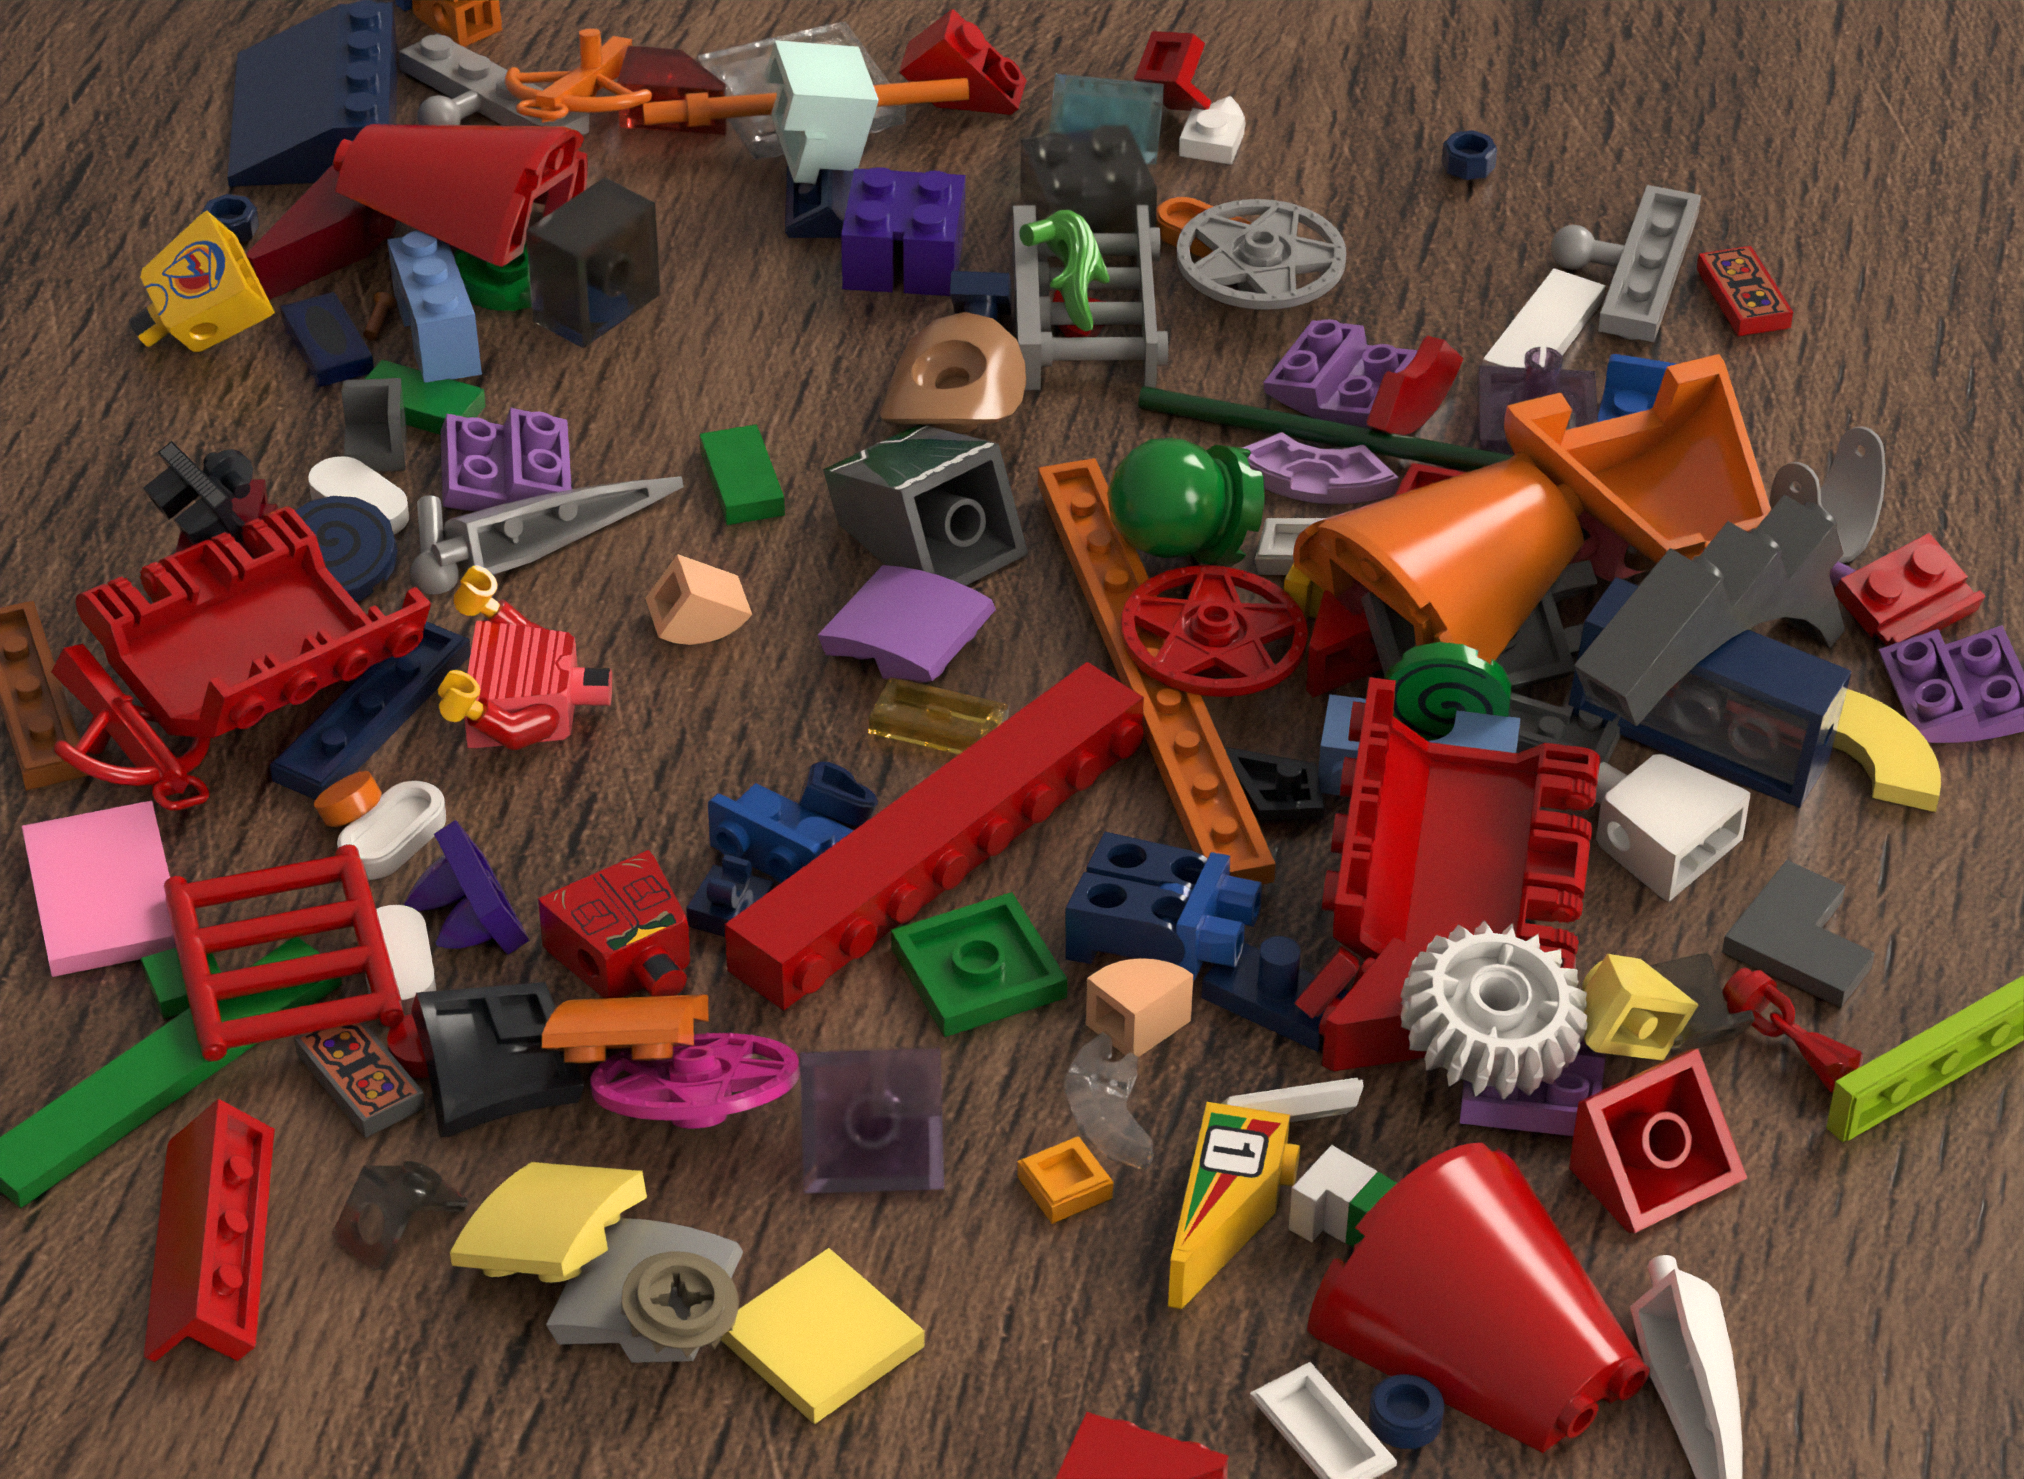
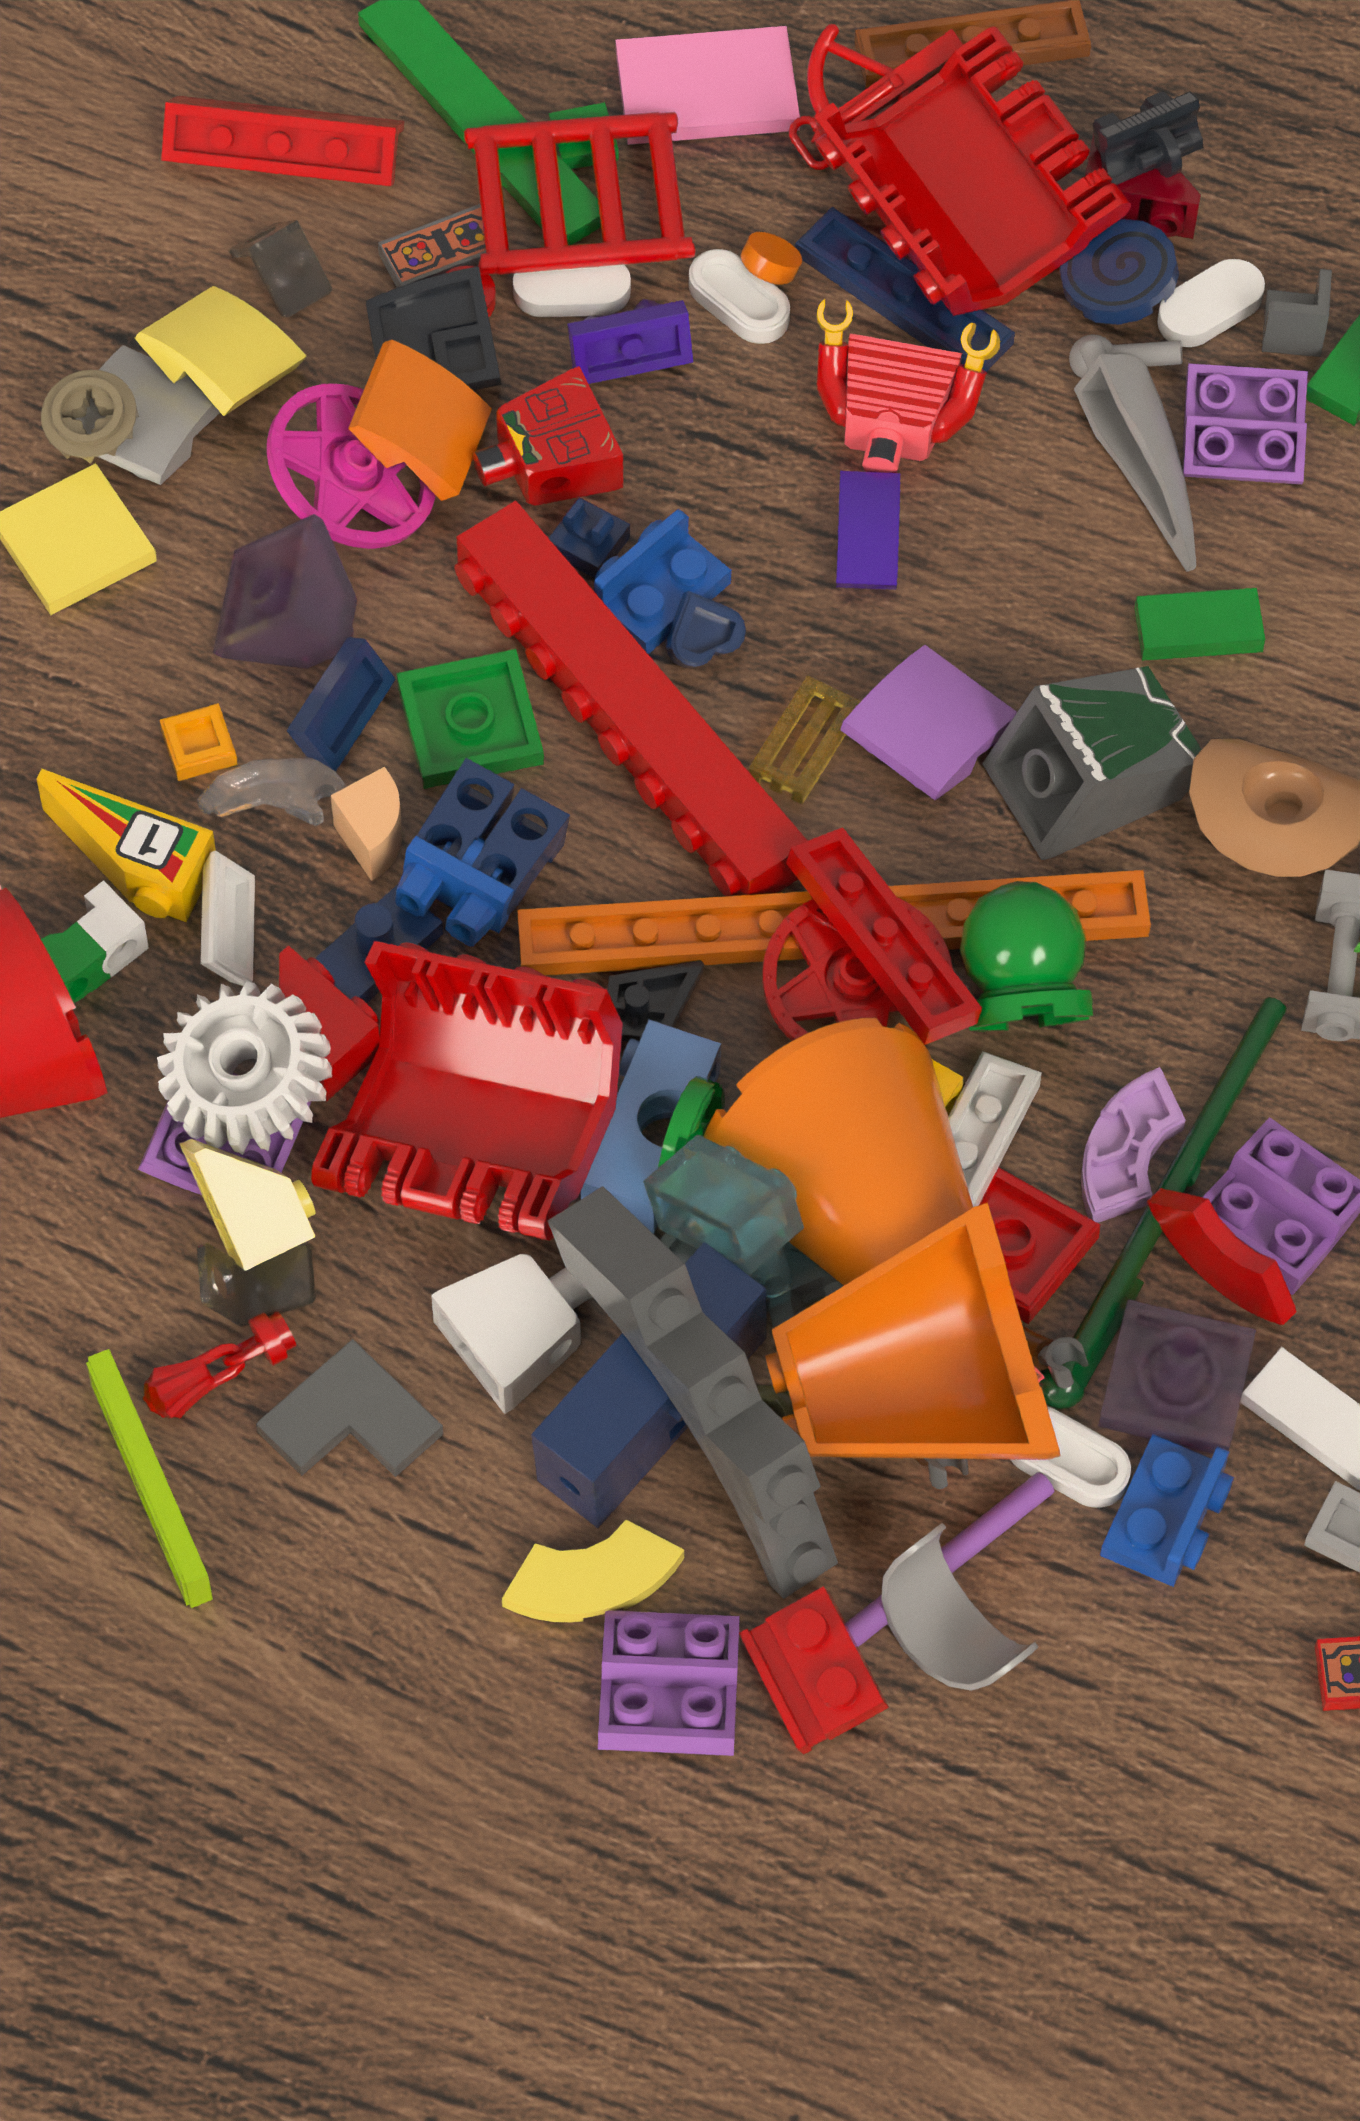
camera: 100 degrees right, 20 degrees up
(666, 691) = (868, 530): none -> dark purple slope
(696, 603) = (993, 556): light nougat brick -> none
(1000, 1049) = (341, 703): none -> dark blue tile
(1188, 583) = (884, 936): none -> red plate
(1328, 982) = (347, 968): red tile -> none
(1538, 616) = (732, 1206): none -> clear light blue brick
(1655, 1143) = (94, 1201): red slope -> none

